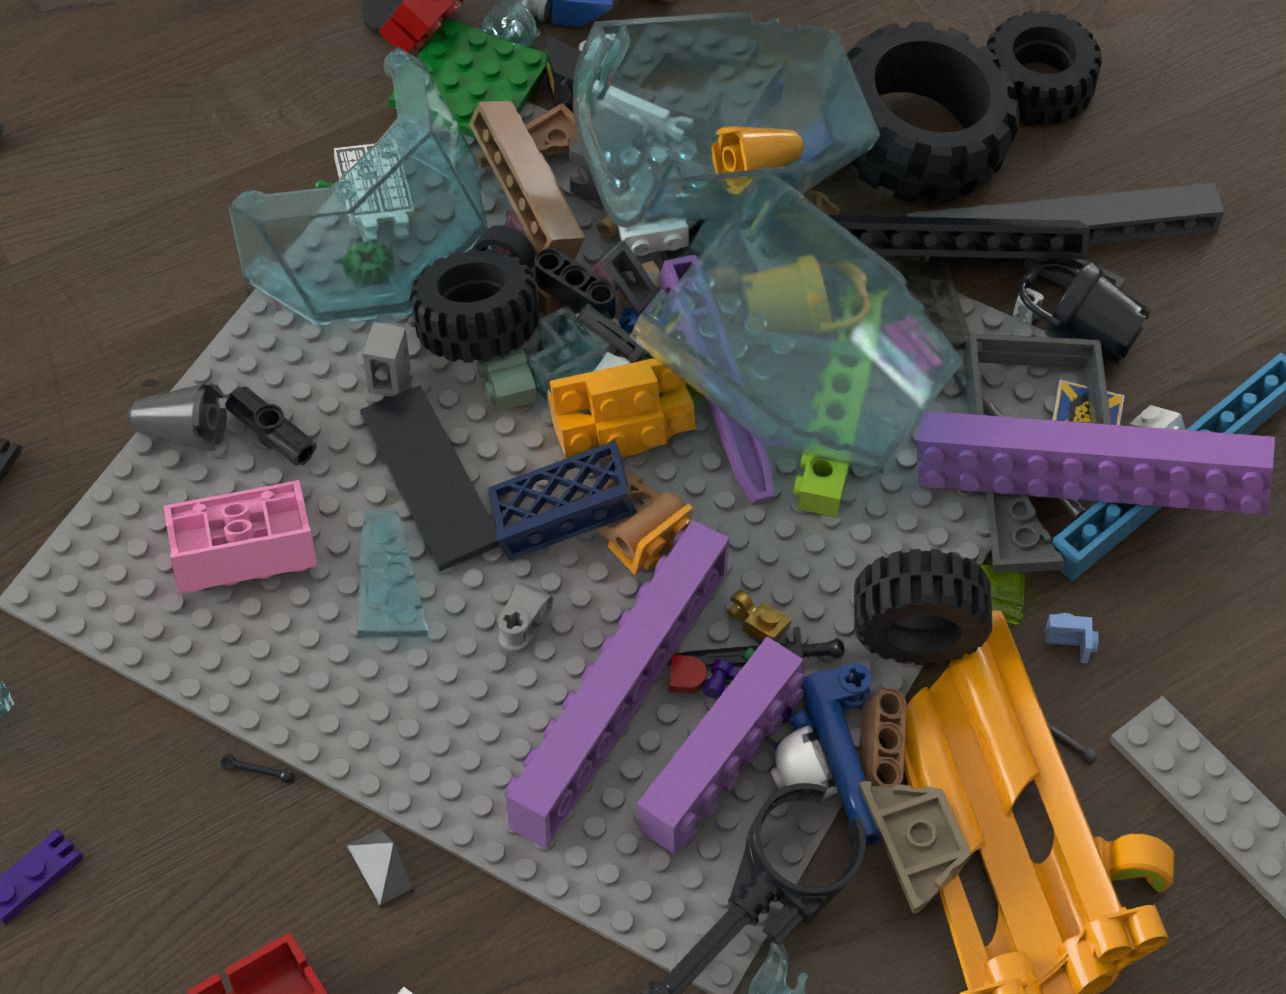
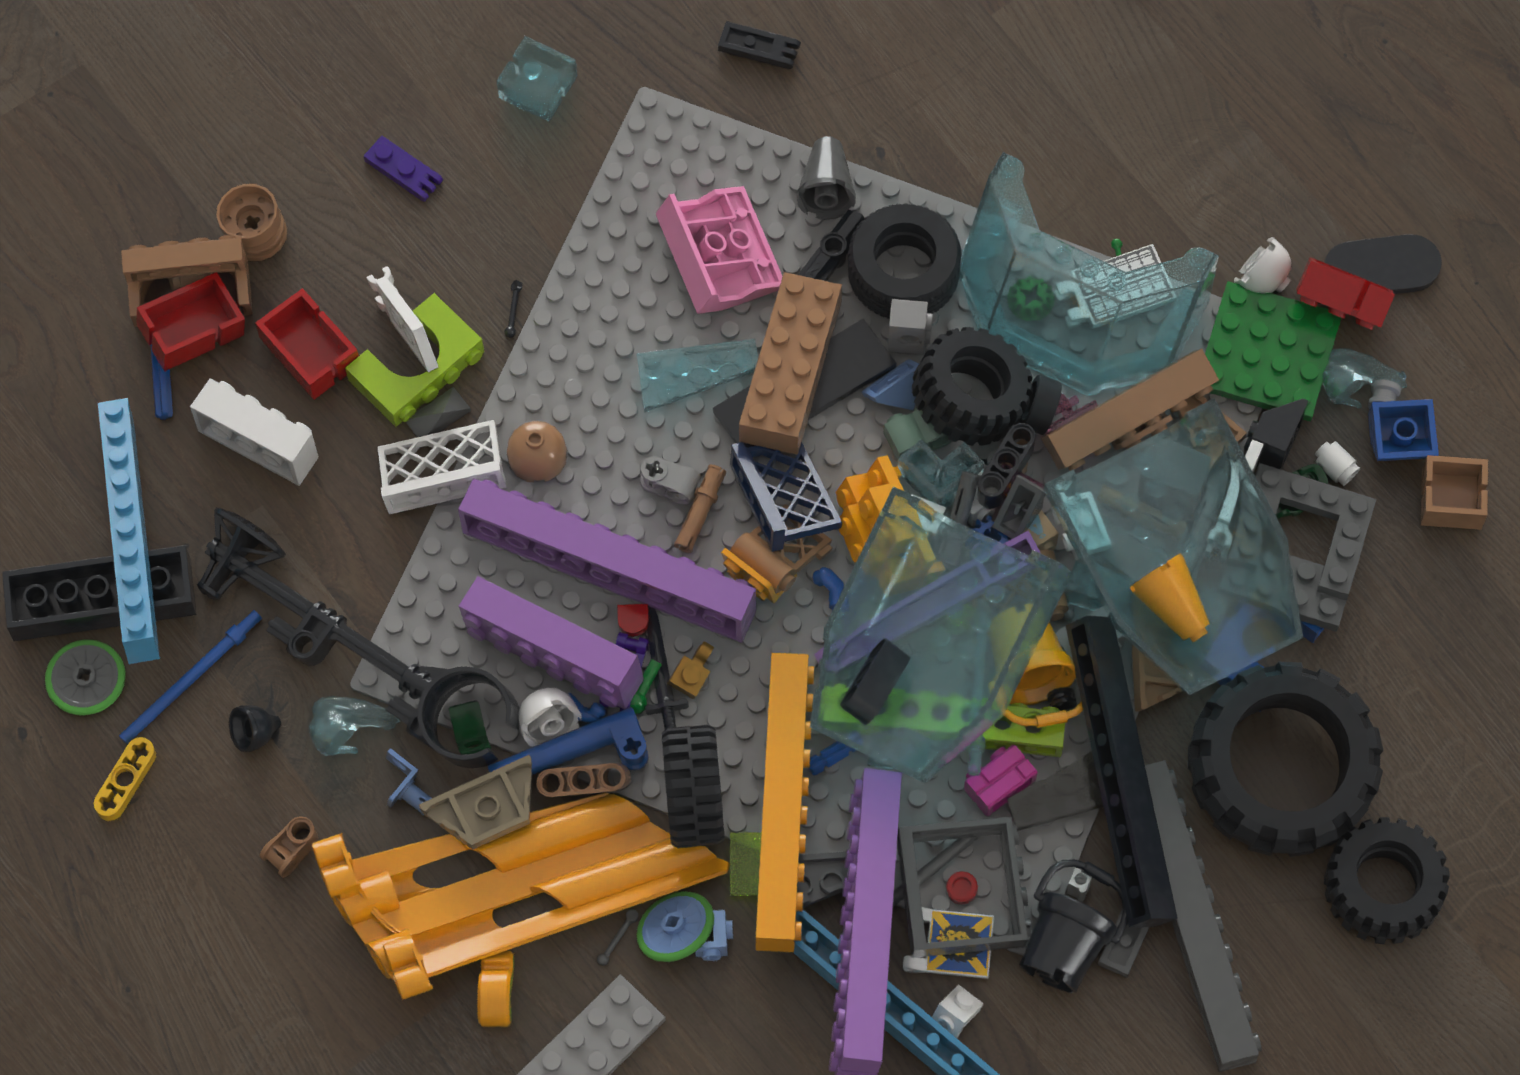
camera: 85 degrees right, 10 degrees up
(257, 874) = (403, 318): none -> white tile
(297, 322) = (904, 226): none -> black tyre
(297, 833) = (401, 396): none -> lime arch
(369, 70) = (1266, 269): none -> white cylinder
(406, 474) = (790, 363): none -> medium nougat brick
(445, 389) = (894, 387): none -> medium blue slope
(458, 752) = (536, 451): none -> medium nougat cylinder
(488, 861) = (443, 484): none -> white fence
(562, 590) = (704, 498): none -> medium nougat pin
(675, 473) = (831, 581): none -> blue arm
(809, 860) = (468, 727): none -> dark green bracket
(819, 414) = (875, 681): none -> black beam
(869, 497) = (828, 757): none -> blue axle
(870, 941) = (407, 789): none -> medium blue bracket
(987, 539) = (783, 803): none -> light orange brick
(1027, 403) = (962, 887): none -> red tile
(1083, 677) = (675, 926): none -> medium blue wheel

